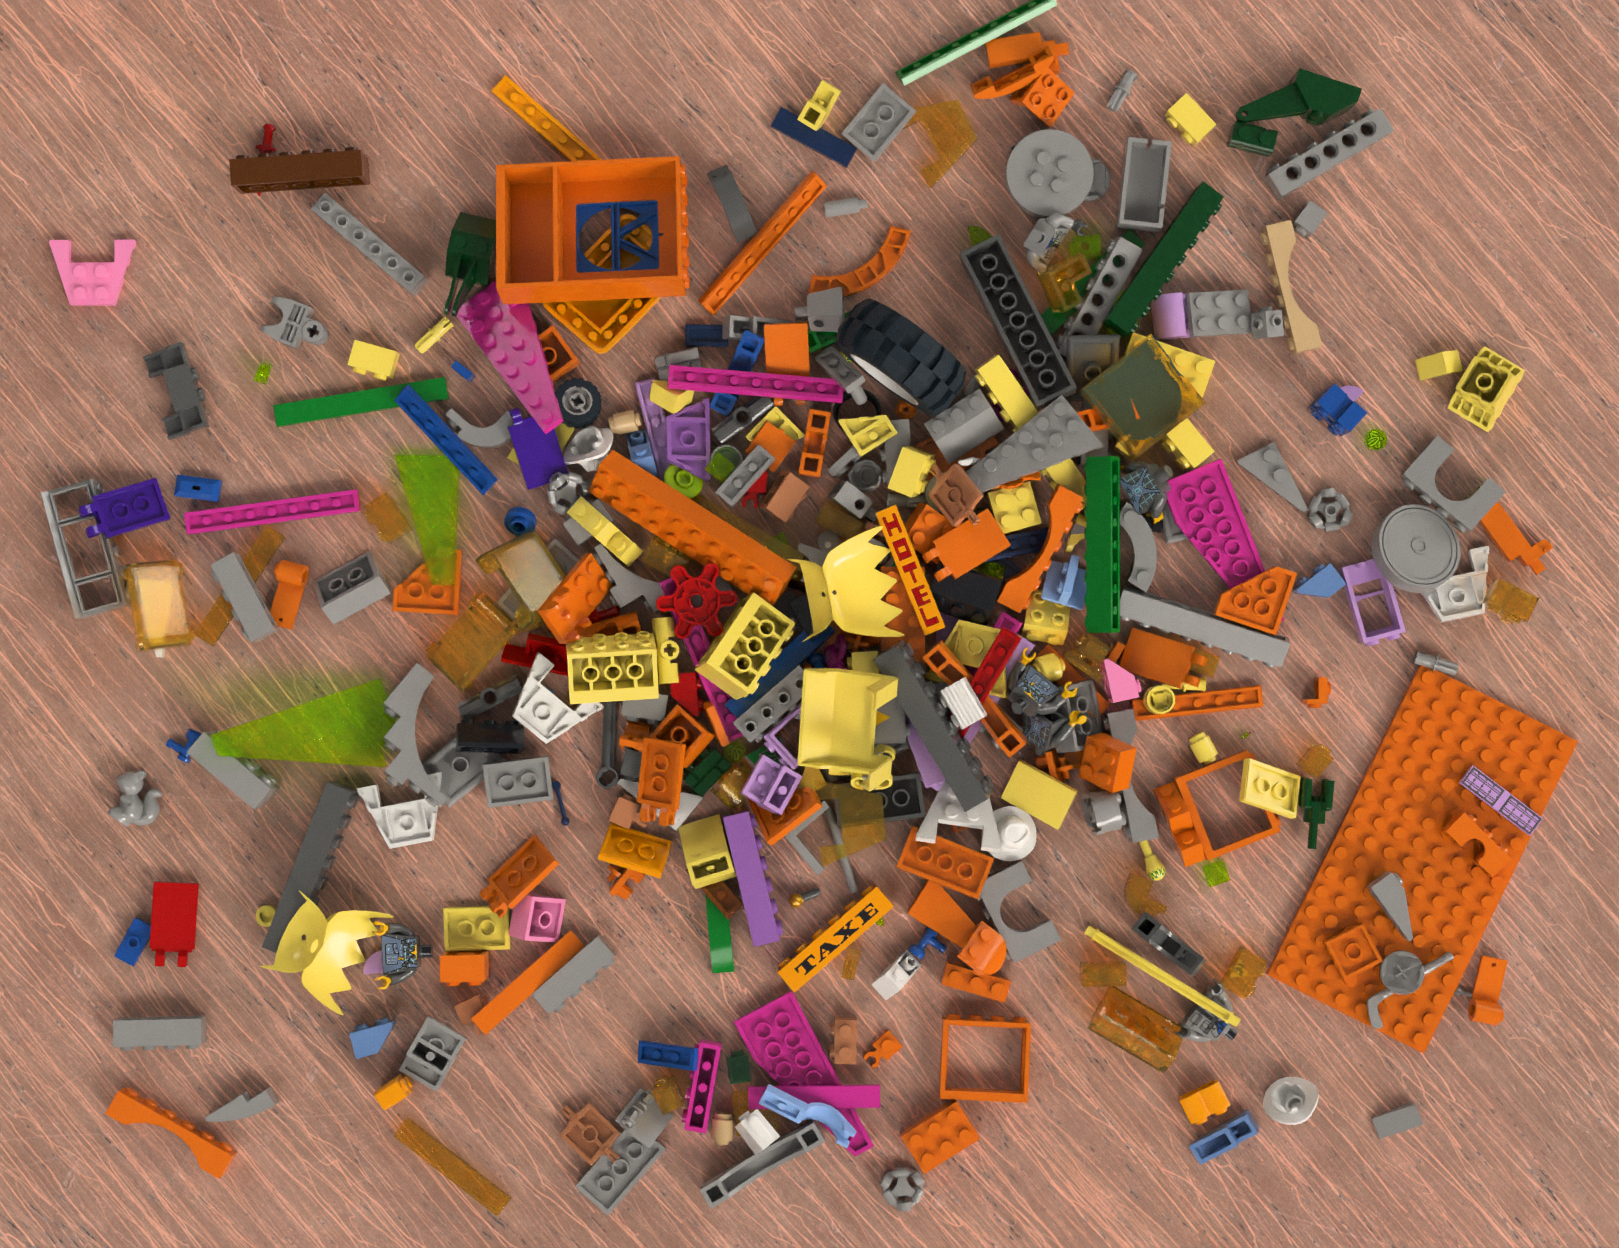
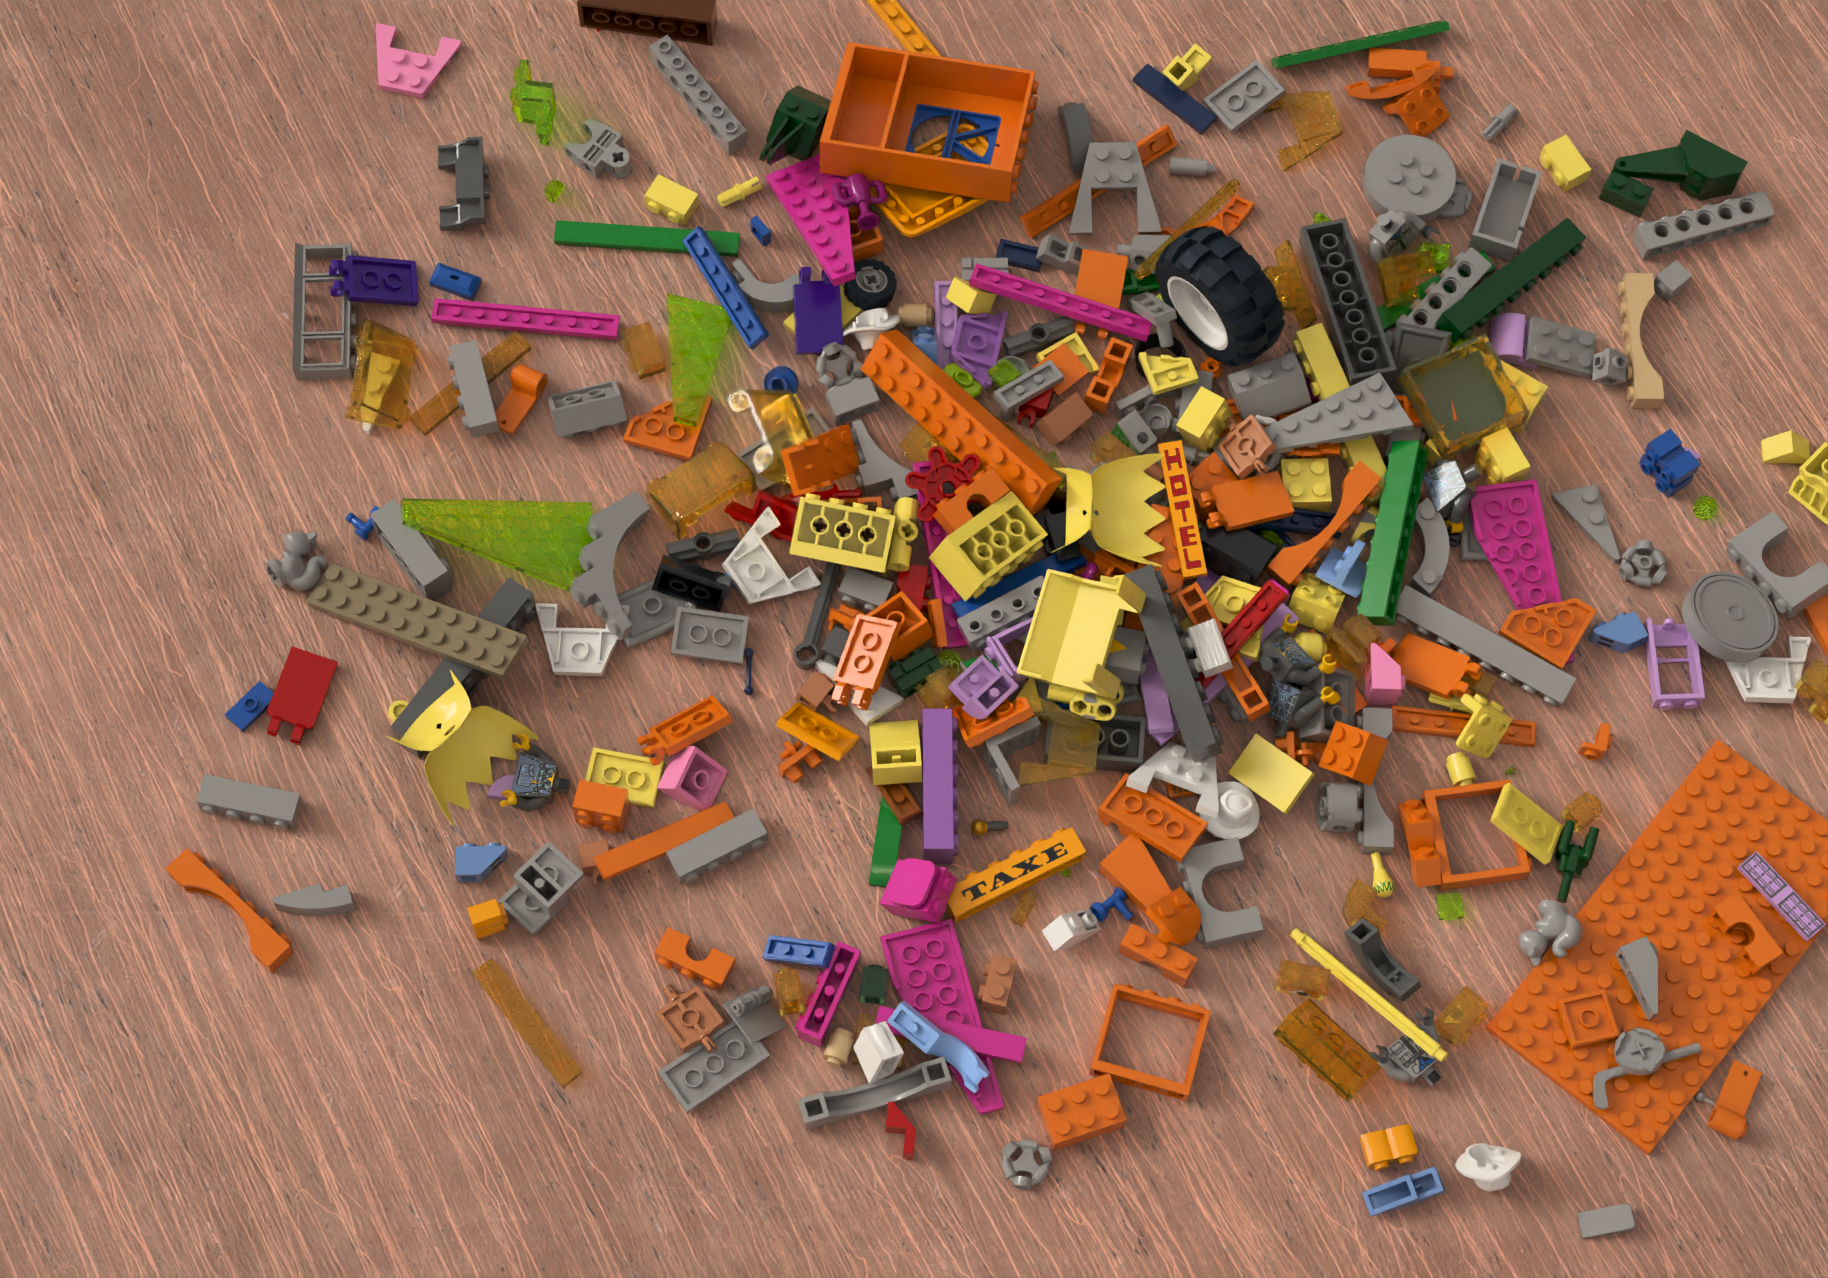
camera: 15 degrees right, 20 degrees down
(219, 292) = (533, 102): none -> clear neon green bracket
(257, 839) = (418, 621): none -> dark tan plate
(546, 322) = (860, 195): none -> magenta piece
(561, 1079) = (712, 971): none -> orange arch
(604, 531) = (868, 407): light yellow arch -> none
(728, 595) = (986, 489): none -> orange arch
(743, 360) = (1057, 277): blue slope -> none
(757, 978) = (918, 890): none -> dark pink brick
(775, 233) = (1114, 167): none -> light grey wing
(788, 1181) = (898, 1123): none -> red slope
(838, 840) = (1041, 792): light grey bar -> none
(855, 282) = (1194, 221): none -> clear yellow piece
(885, 1046) = (1040, 1005): orange plate -> none
(959, 311) = (1290, 285): none -> clear yellow bracket
(1158, 699) = (1422, 704): light yellow wheel -> none
(1220, 700) = (1484, 727): none -> light yellow bracket
(1309, 874) = (1555, 925): none -> light grey animal
(1435, 663) = (1732, 741): light grey axle -> none

